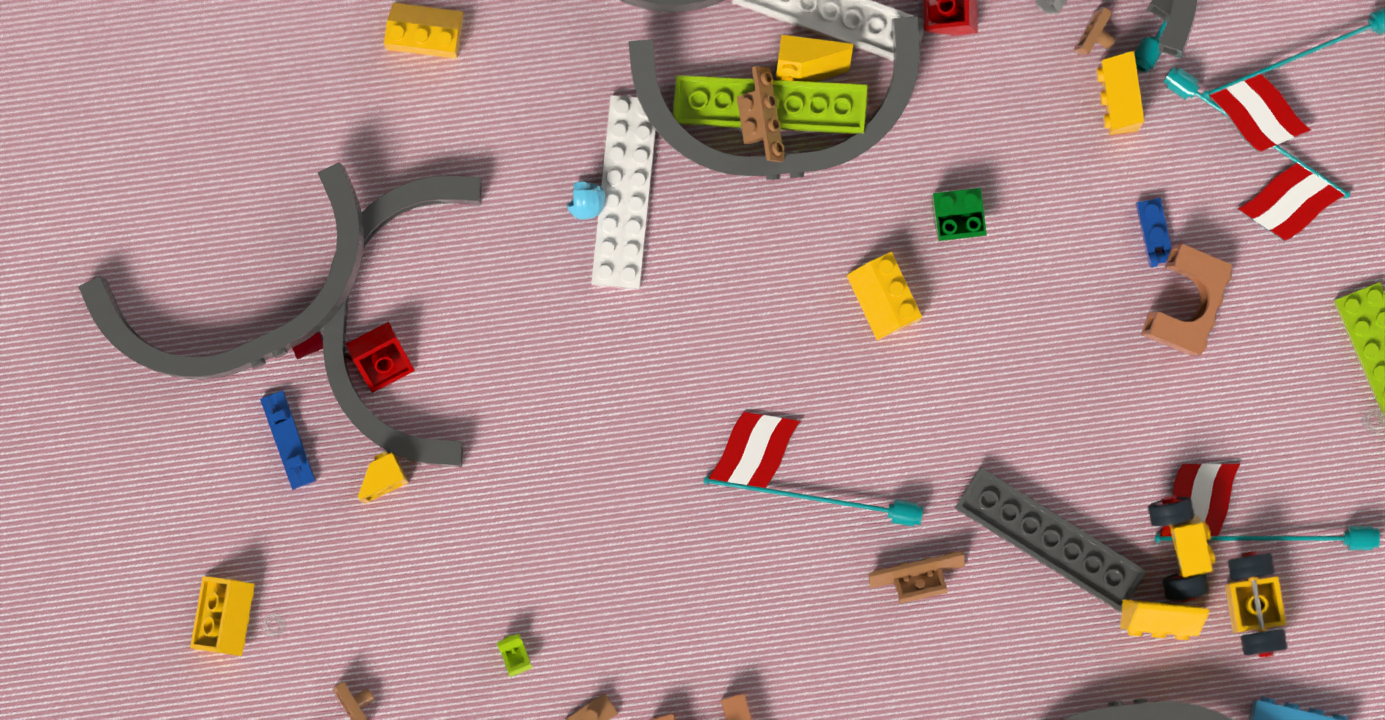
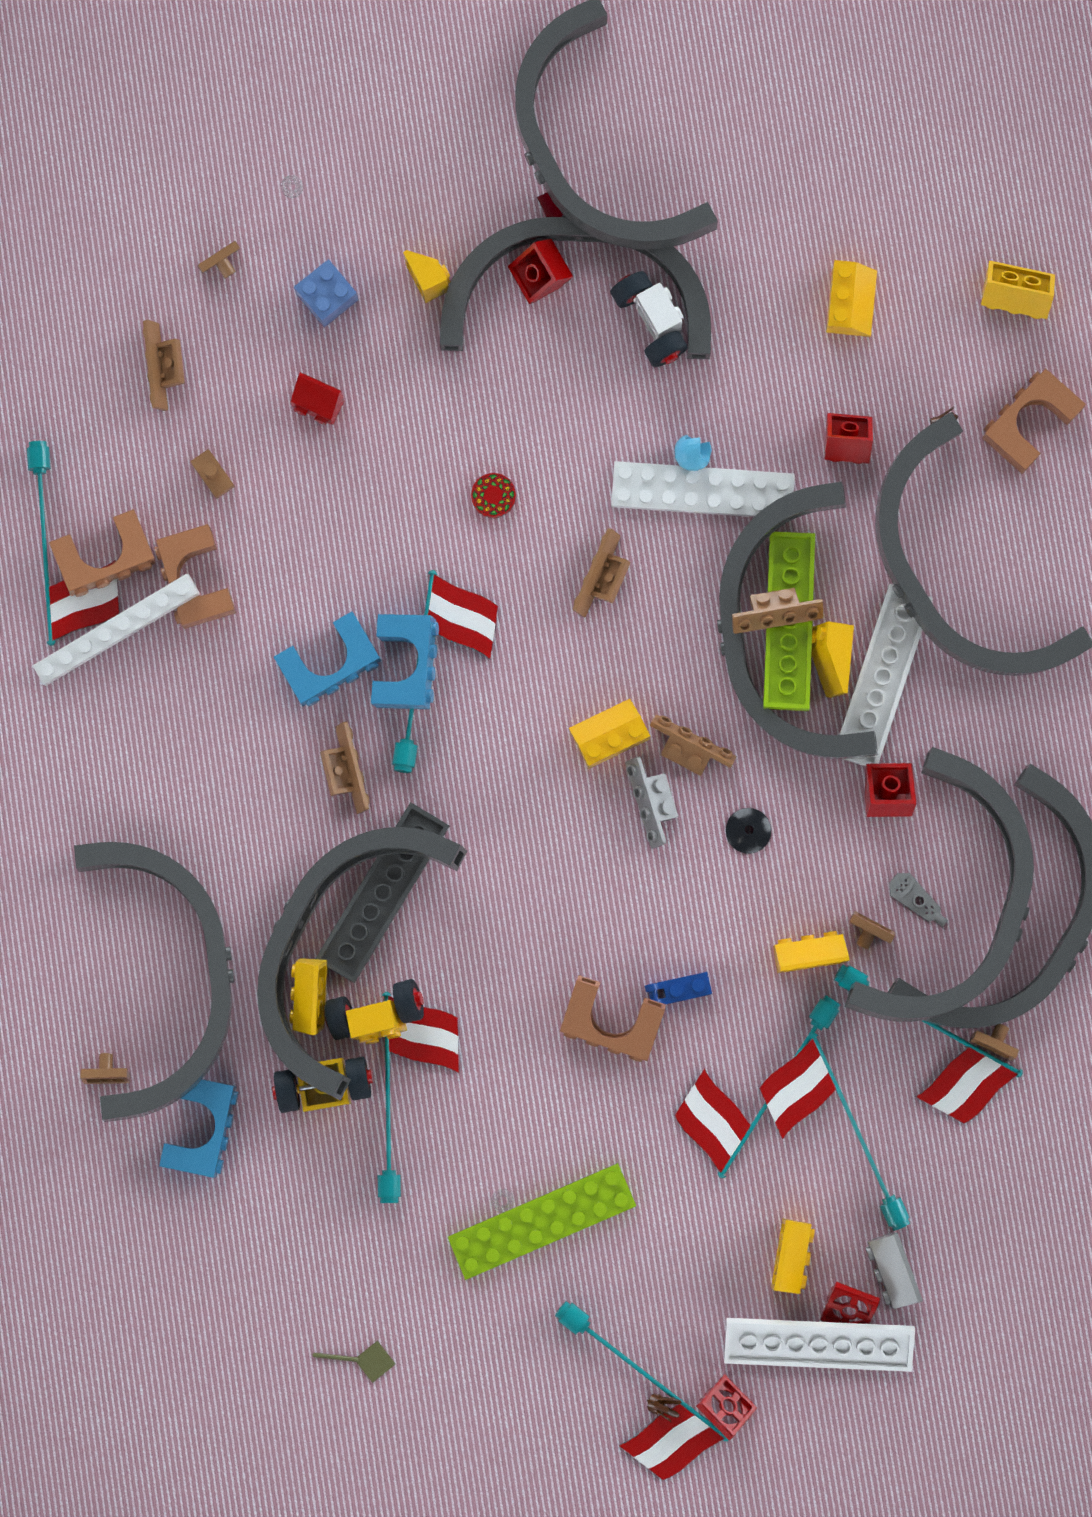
camera: 90 degrees right, 0 degrees up
(222, 616) = (298, 140): yellow slope -> none
(288, 440) = (462, 192): blue hinge -> none
(396, 588) = (326, 293): none -> medium blue brick
(434, 232) = (658, 314): none -> brick
(514, 655) = (267, 402): lime bracket -> none
(516, 600) = (316, 399): none -> red slope
(574, 37) = (848, 438): none -> red slope
(624, 413) = (493, 495): none -> tile
(716, 296) = (604, 575): none -> medium nougat bracket
(797, 558) = (360, 657): none -> dark azure arch
(837, 498) = (415, 690): none -> dark azure arch
(901, 214) = (689, 749): none -> medium nougat bracket
(956, 255) = (653, 800): none -> light grey bracket
(958, 214) = (688, 800): green slope -> none
(982, 166) = (740, 839): none -> black dish
(1086, 637) = (295, 918): none -> dark grey arch

